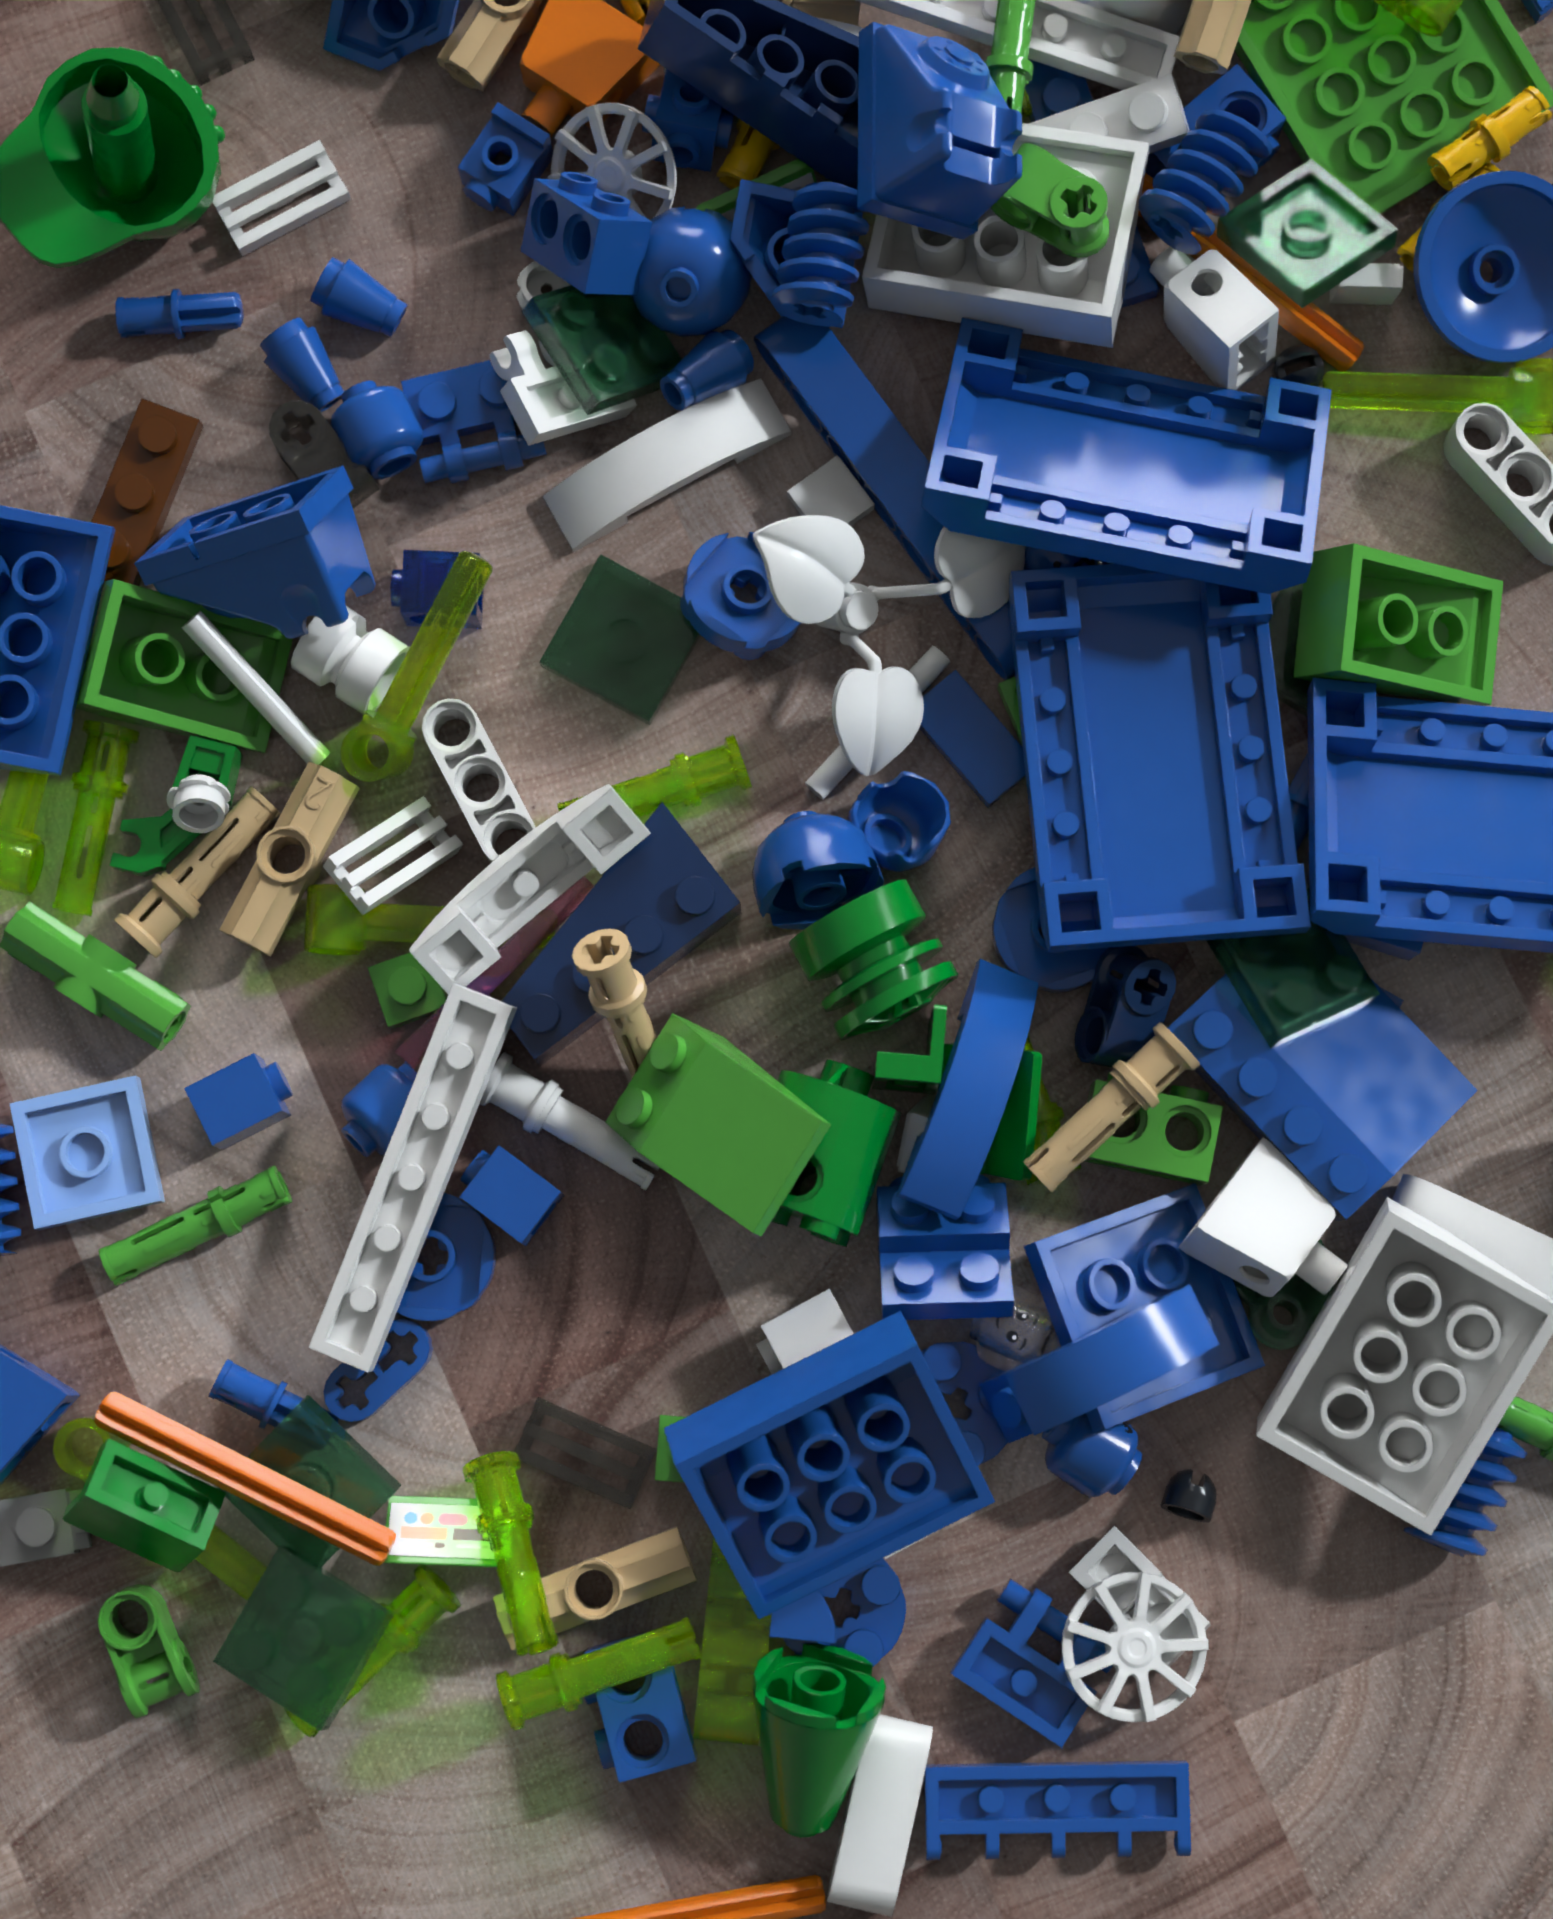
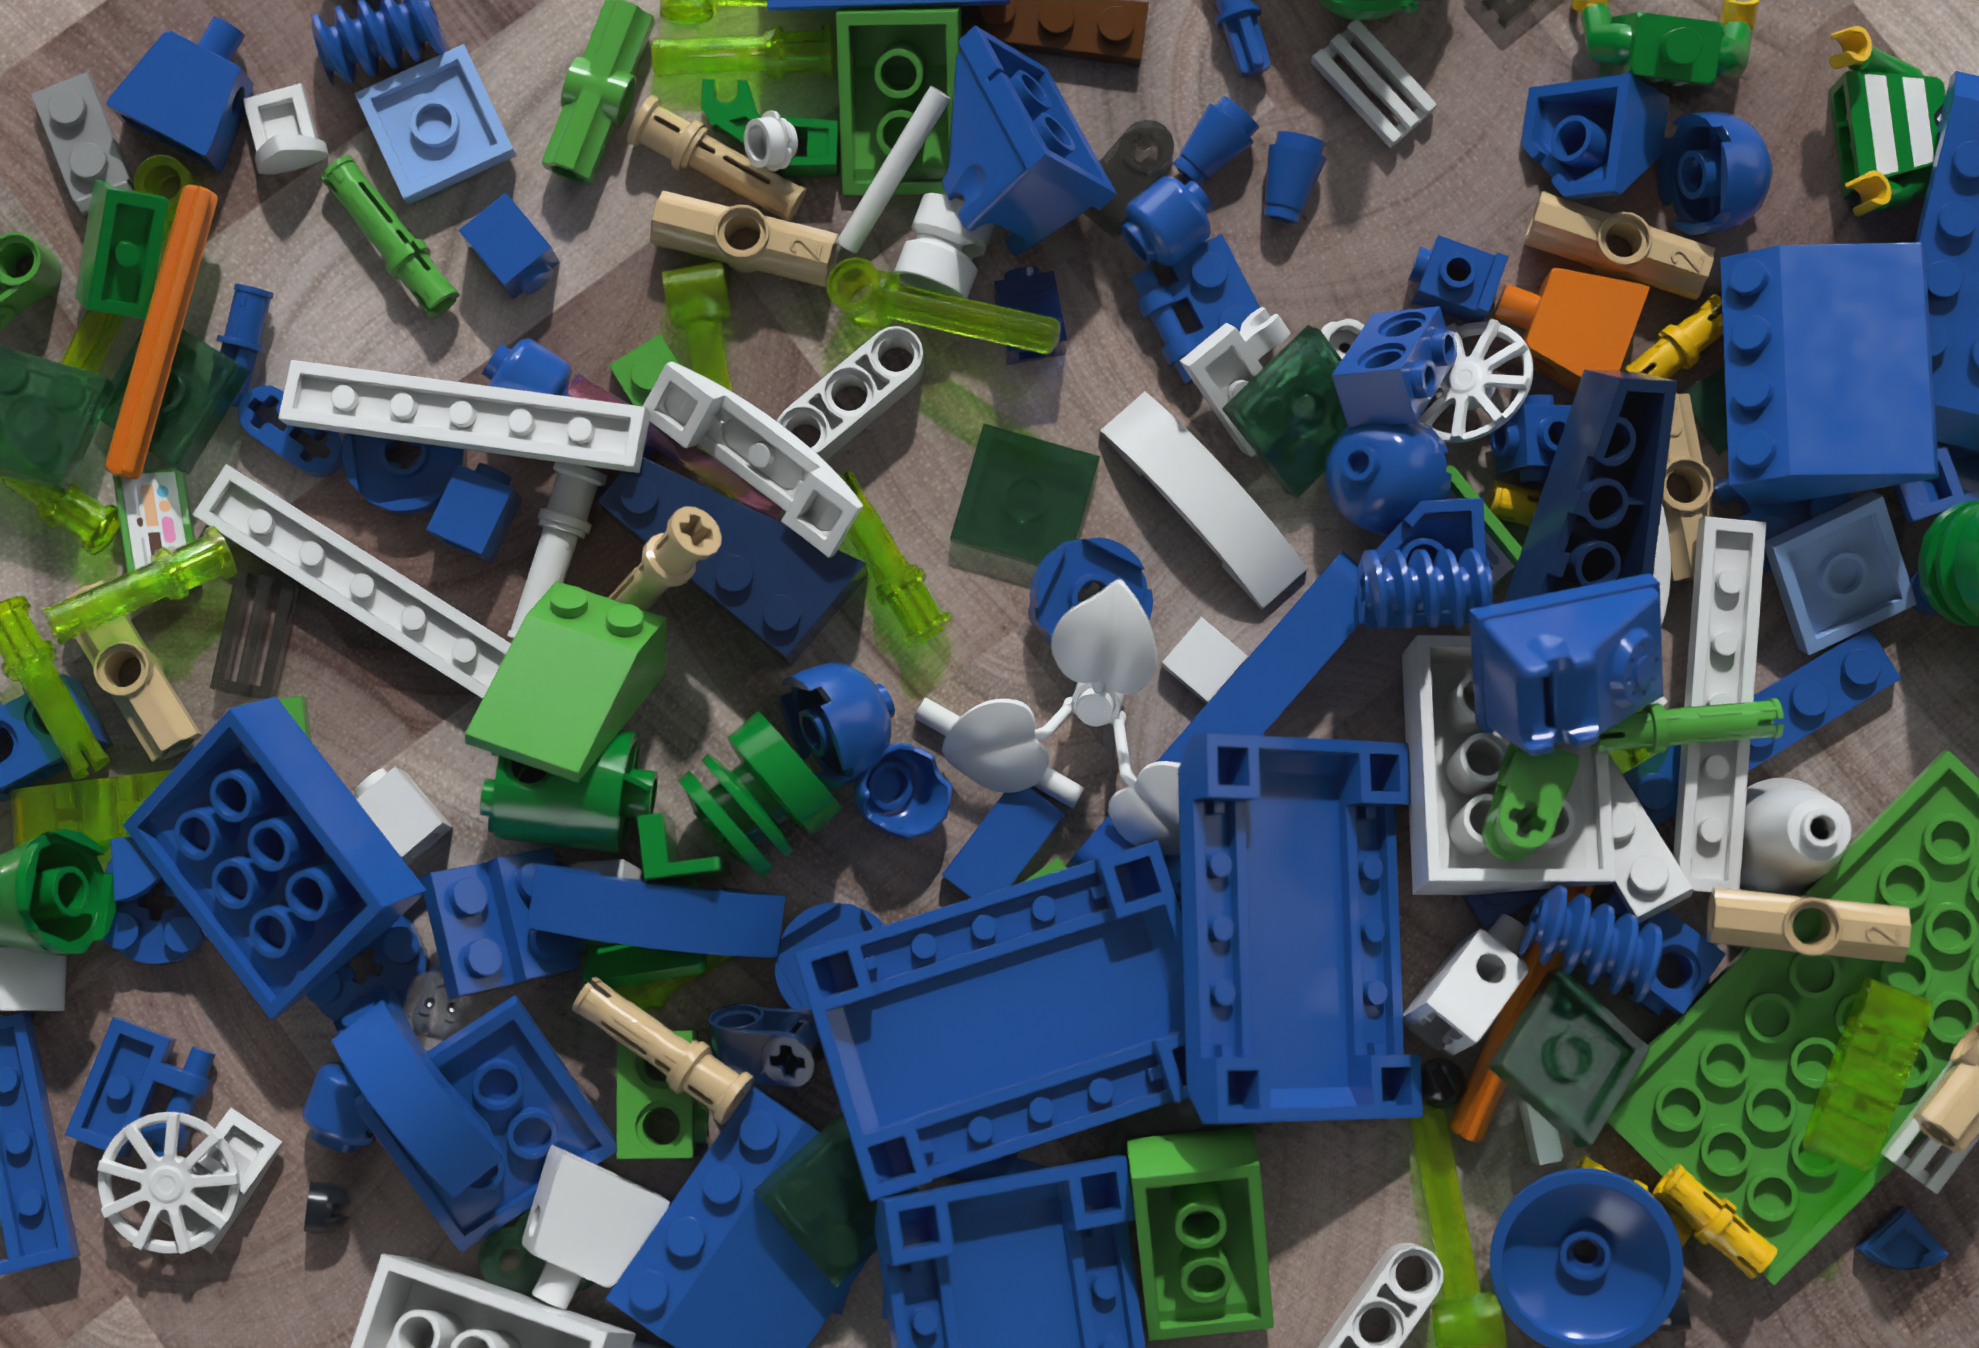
camera: 75 degrees right, 0 degrees up
(52, 1316) = (284, 131): none -> white tile
(429, 829) = (803, 362): white tile -> none
(559, 1329) = (353, 580): none -> white plate
(710, 368) = (1298, 514): blue cone -> none

